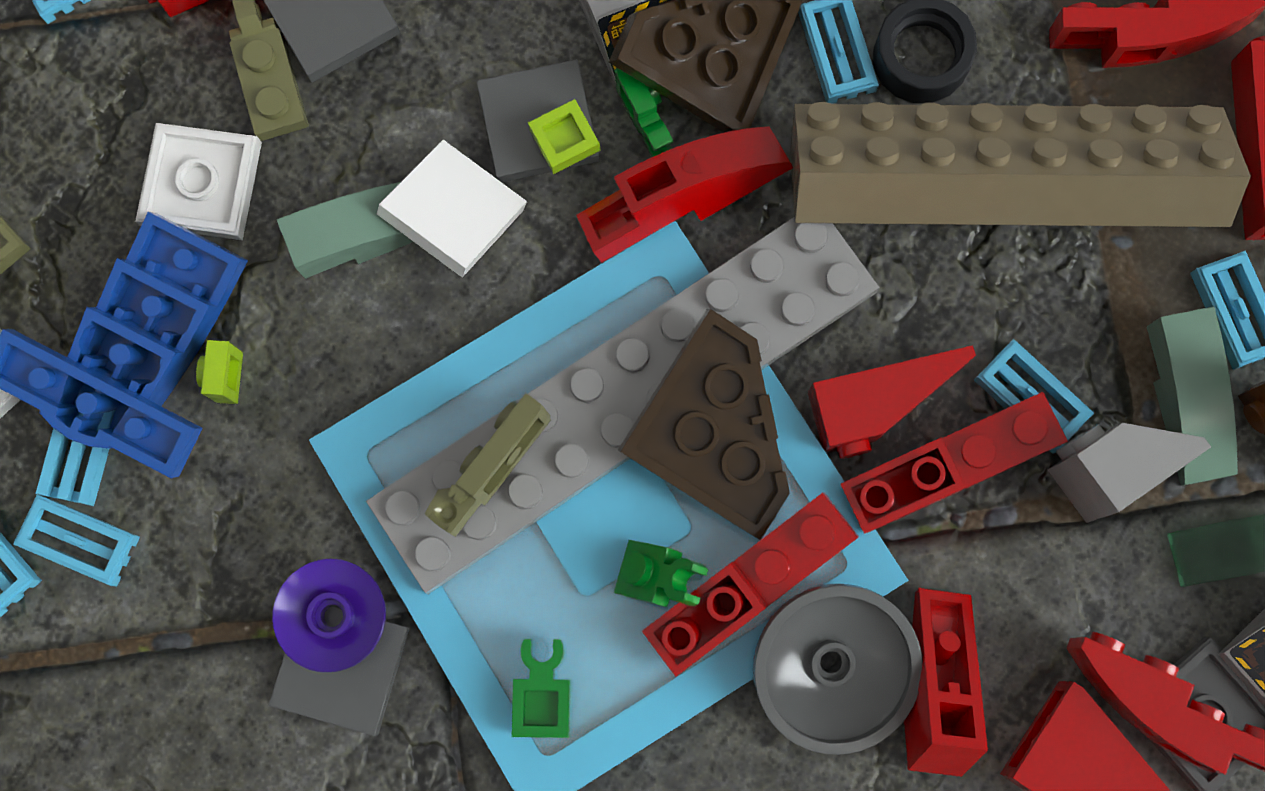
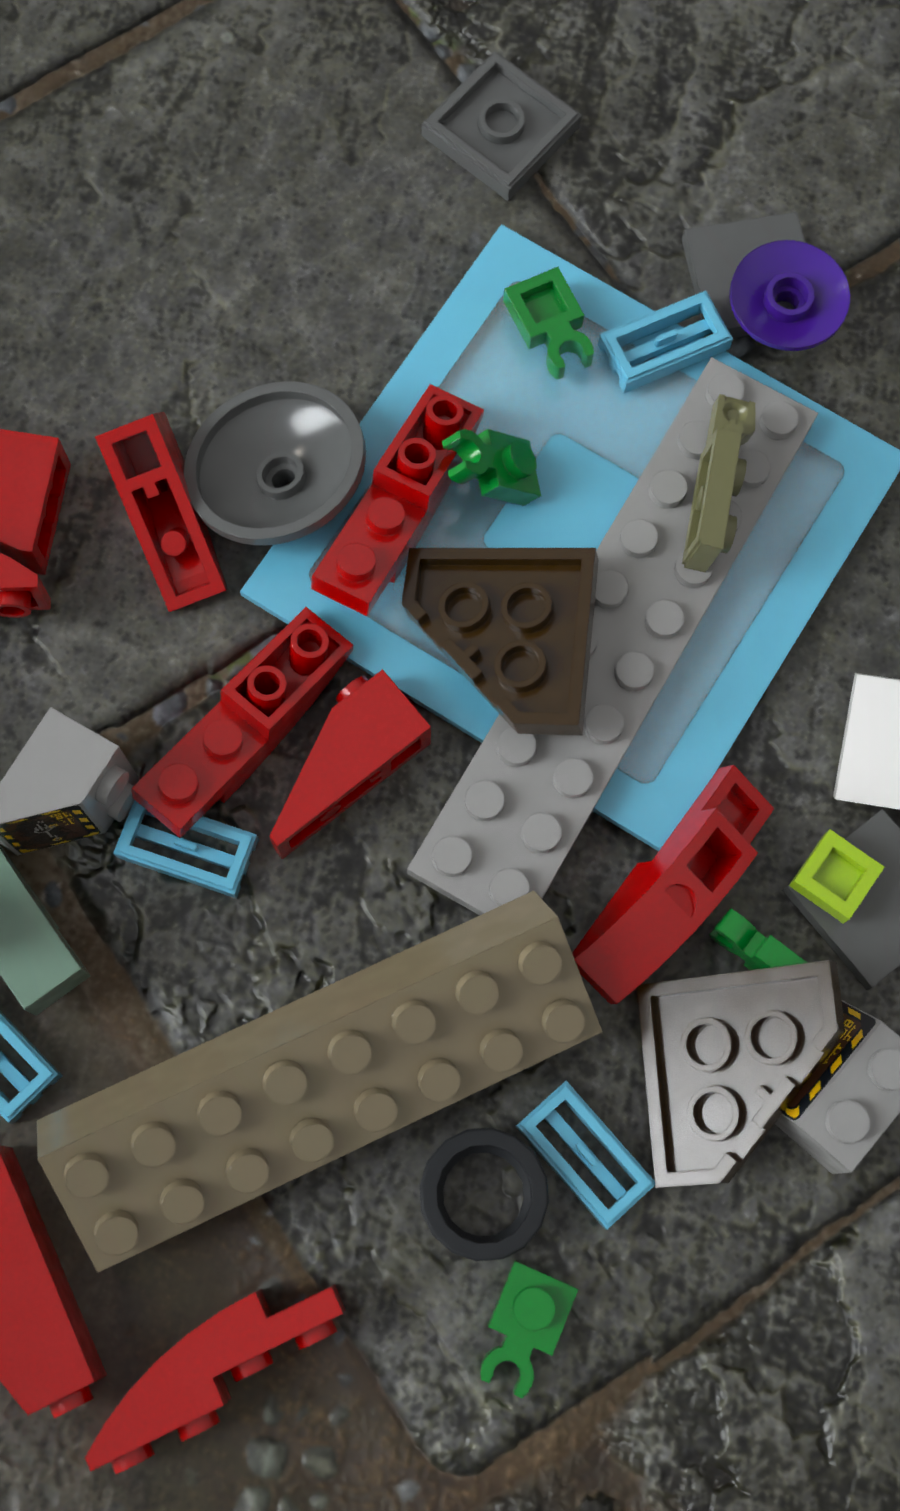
camera: 145 degrees right, 5 degrees down
(499, 633) = (621, 362): none -> medium azure tile

